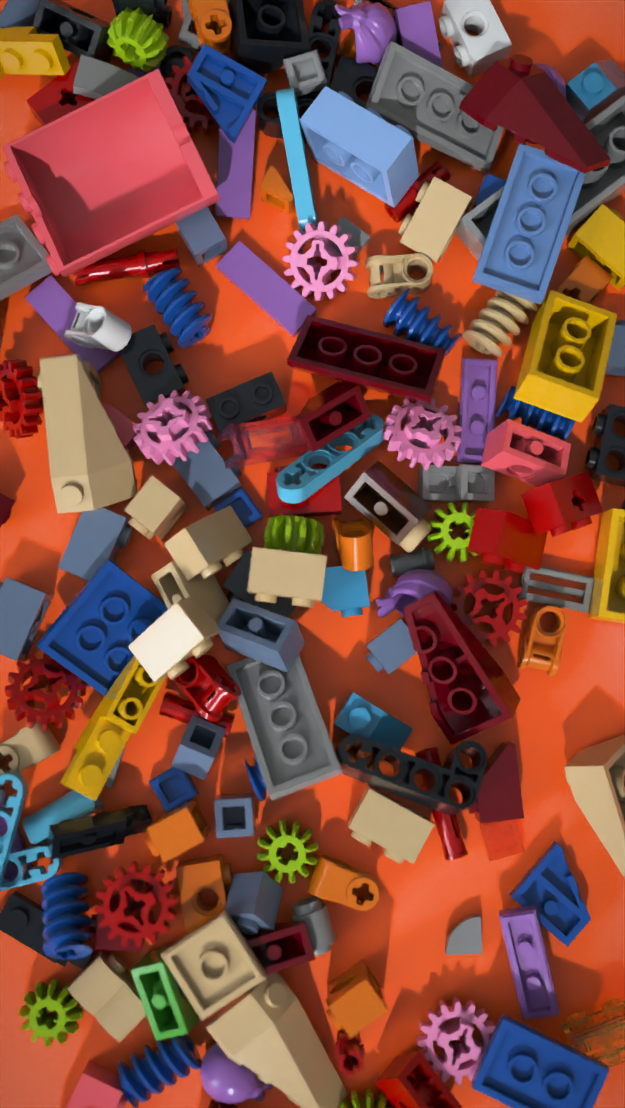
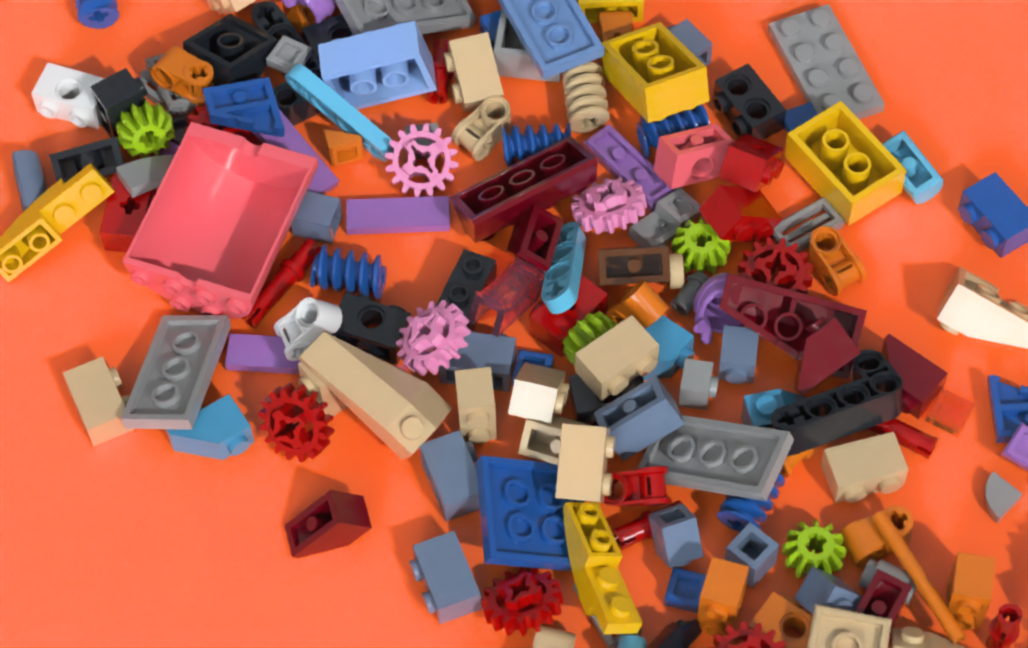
camera: 40 degrees left, 25 degrees down
(330, 953) = (918, 577): none -> orange piece
(339, 642) = (697, 384): none -> light grey plate
(443, 718) = (822, 353): none -> dark red slope

